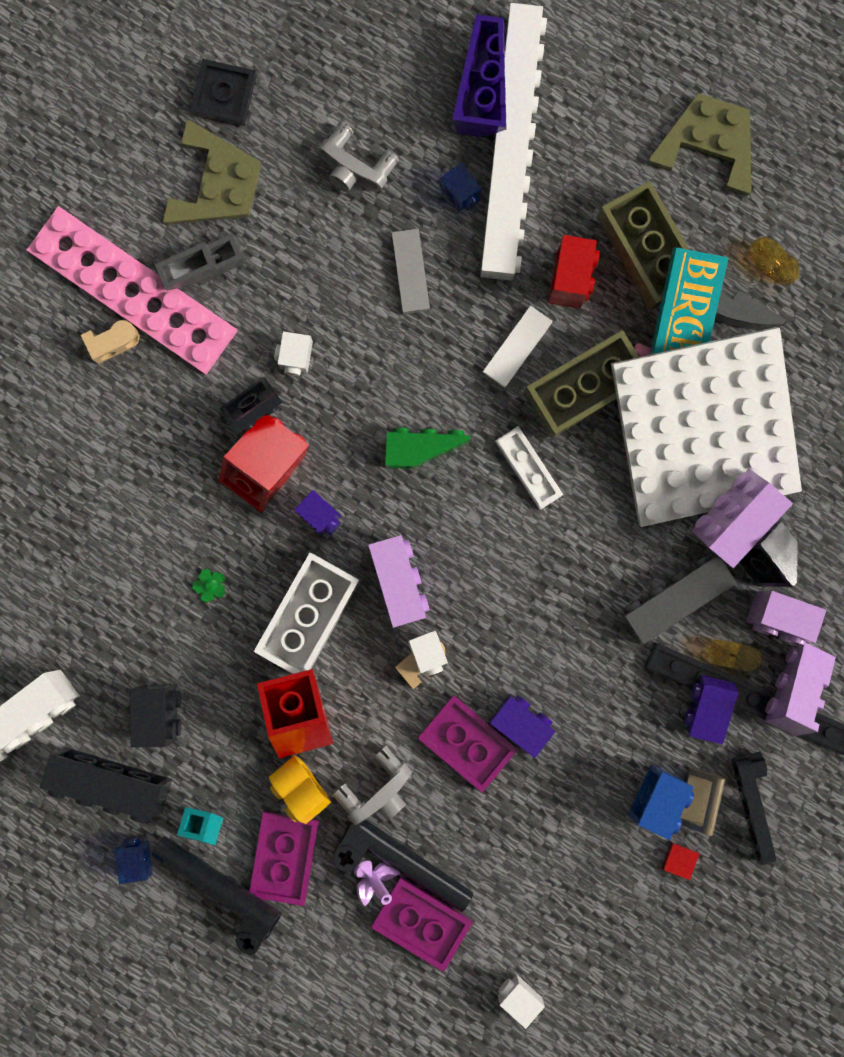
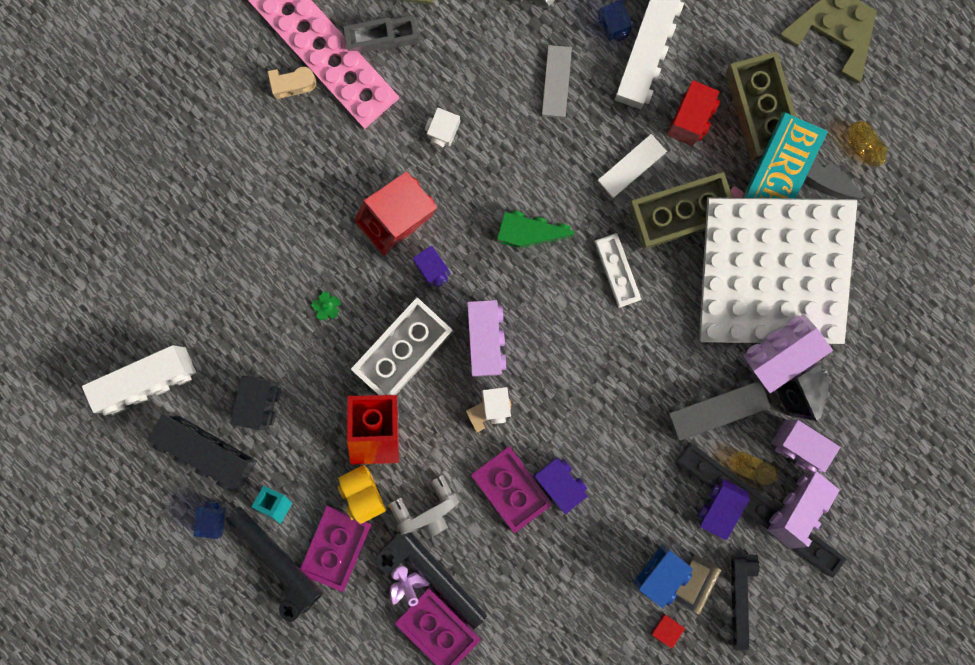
camera: 20 degrees right, 0 degrees up
(250, 406) = (396, 163): black plate -> none

